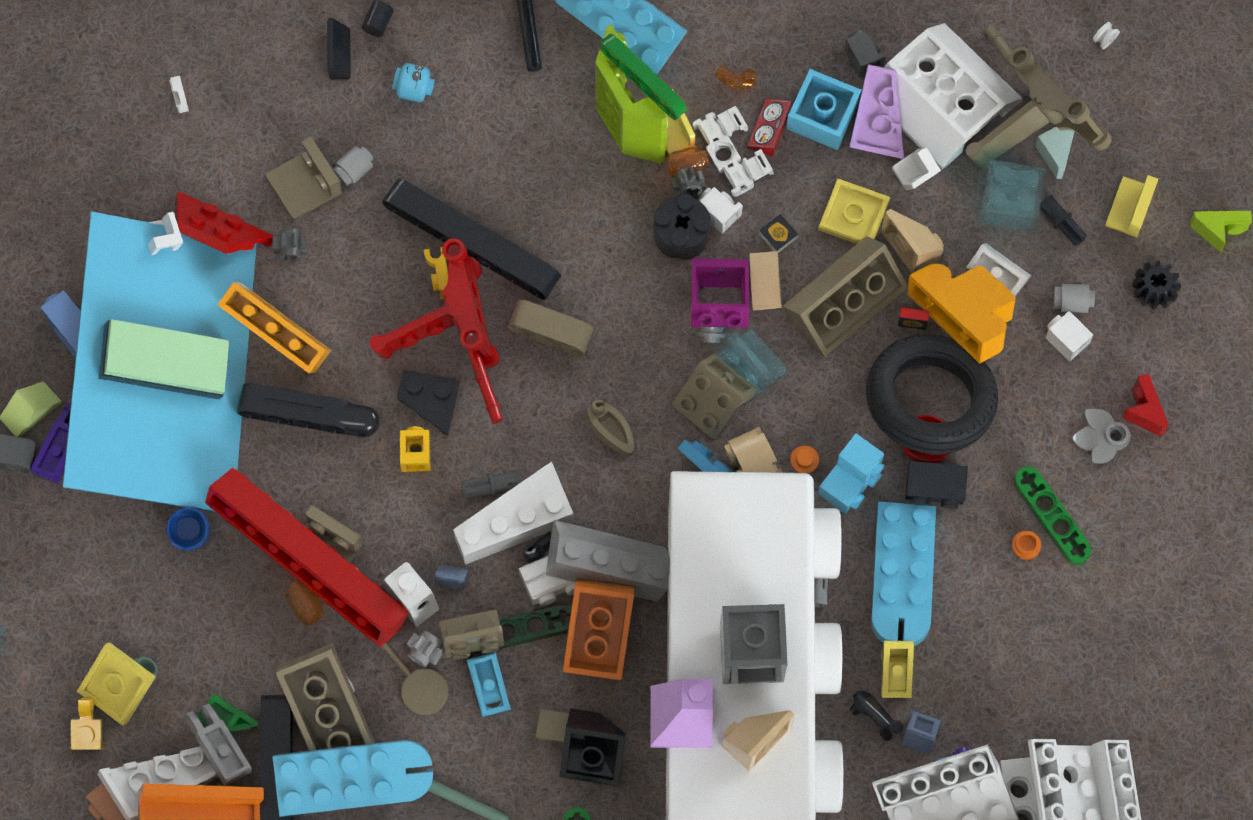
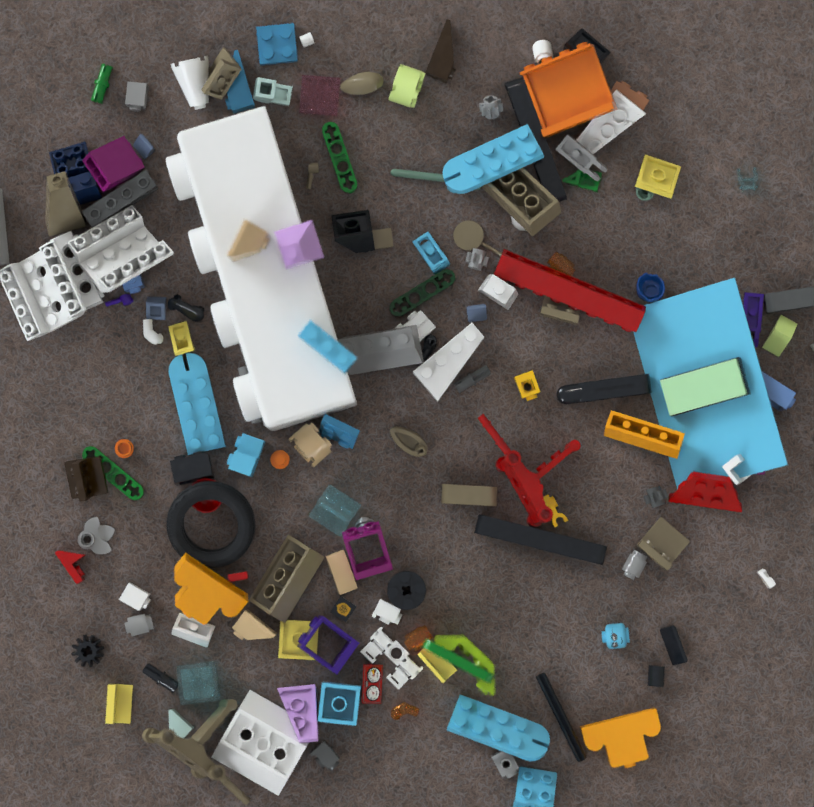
camera: 165 degrees right, 15 degrees up
(86, 731) = (666, 144): yellow plate -> none
(430, 397) = (530, 424): black wing -> none
(472, 634) = (450, 275): dark tan bracket -> none
(598, 629) = (372, 302): orange brick -> none
(687, 550) = (327, 347): none -> medium azure brick
(688, 182) = (411, 621): dark grey gear -> none
(713, 395) = (349, 482): dark tan bracket -> none
(753, 644) = (266, 293): dark grey container -> none
(800, 169) = (342, 656): none -> dark purple window
(915, 168) = (266, 681): white panel -> none
(942, 696) = (150, 334): none -> white arm
(1094, 516) = (86, 478): none -> dark brown bracket
(1213, 224) = (61, 705): lime slope -> none

